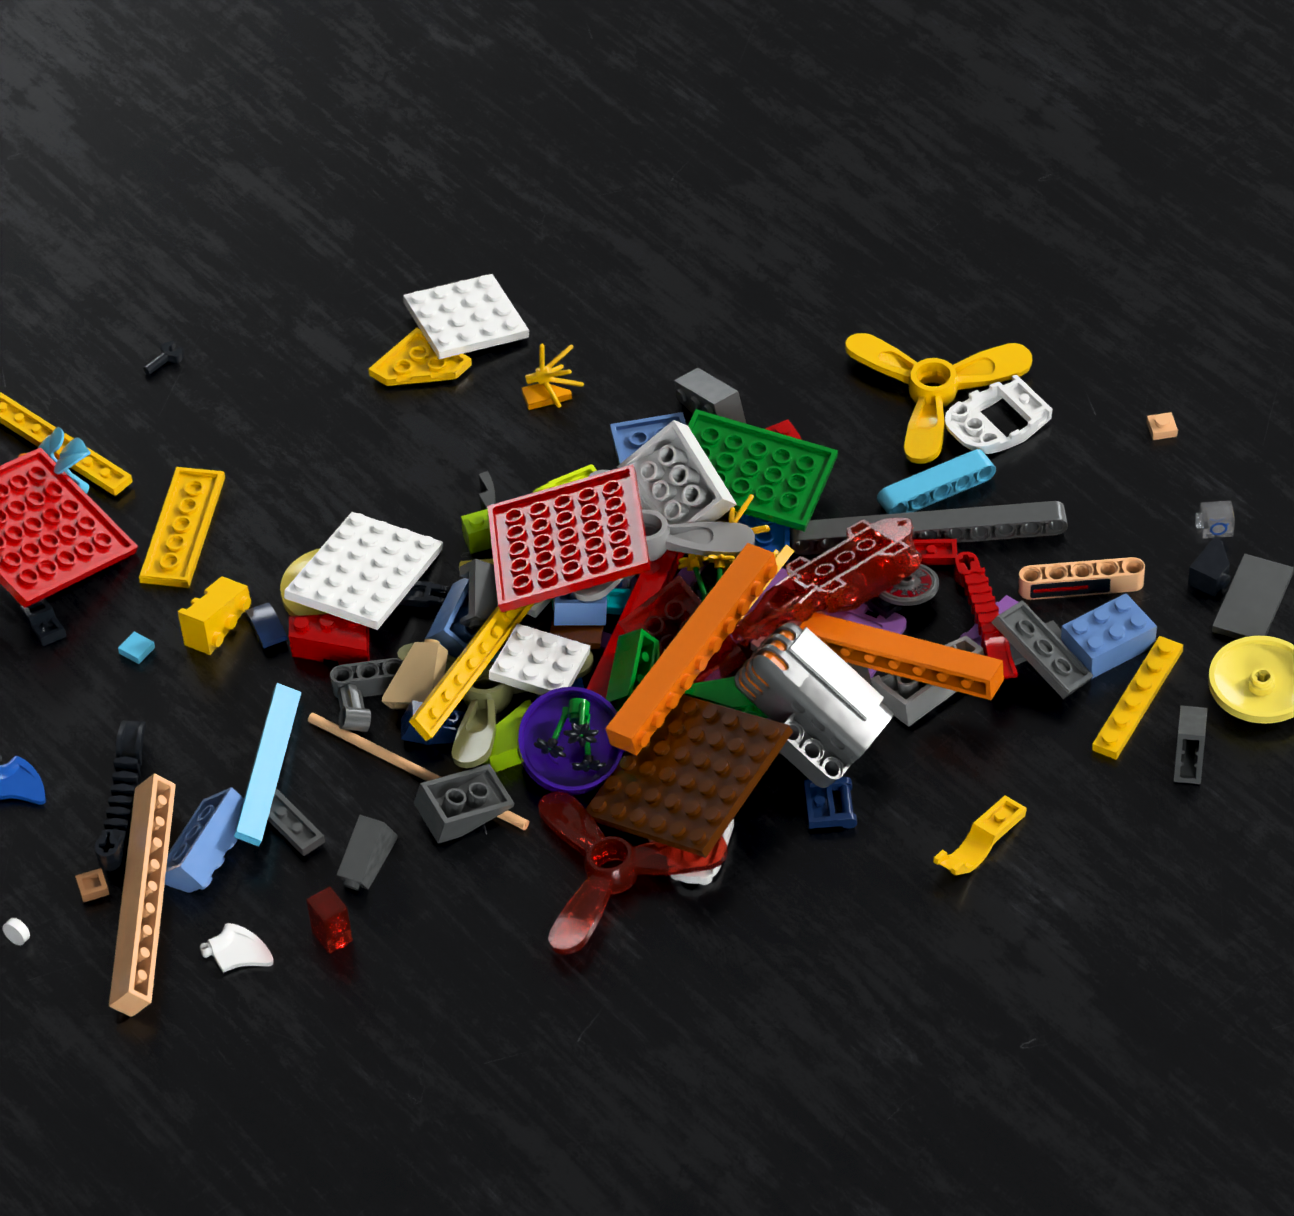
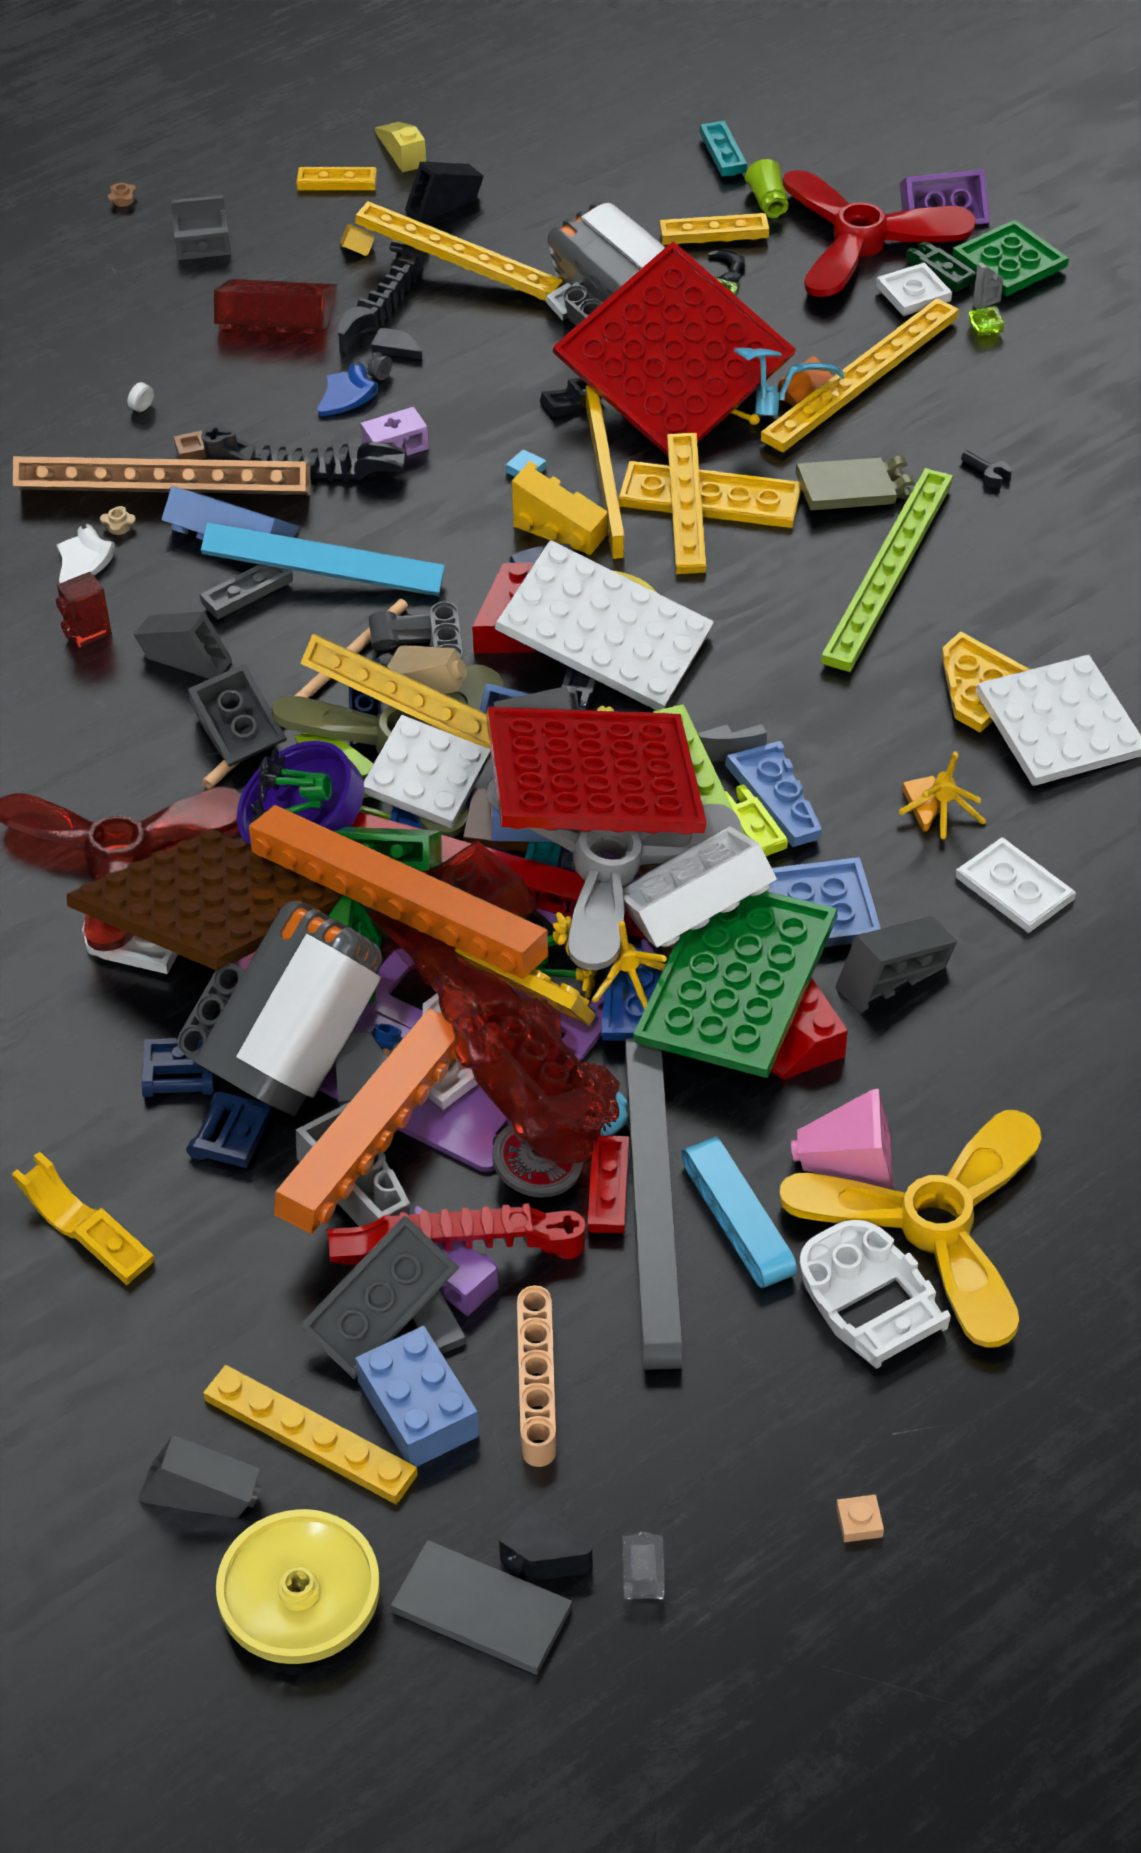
camera: 90 degrees right, 0 degrees up
(92, 735) = (398, 429): none -> lavender brick
(145, 590) = (605, 472): none -> yellow tile
(182, 434) = (854, 482): none -> tile
(189, 934) = (118, 520): none -> tan plate
(201, 534) = (686, 503): none -> yellow tile
(287, 413) = (886, 570): none -> lime plate
(525, 479) = (771, 780): none -> medium blue wing
(626, 349) = (1015, 884): none -> white tile
(879, 420) = (849, 1143): none -> bright pink slope
(888, 758) = (240, 1133): none -> dark blue plate

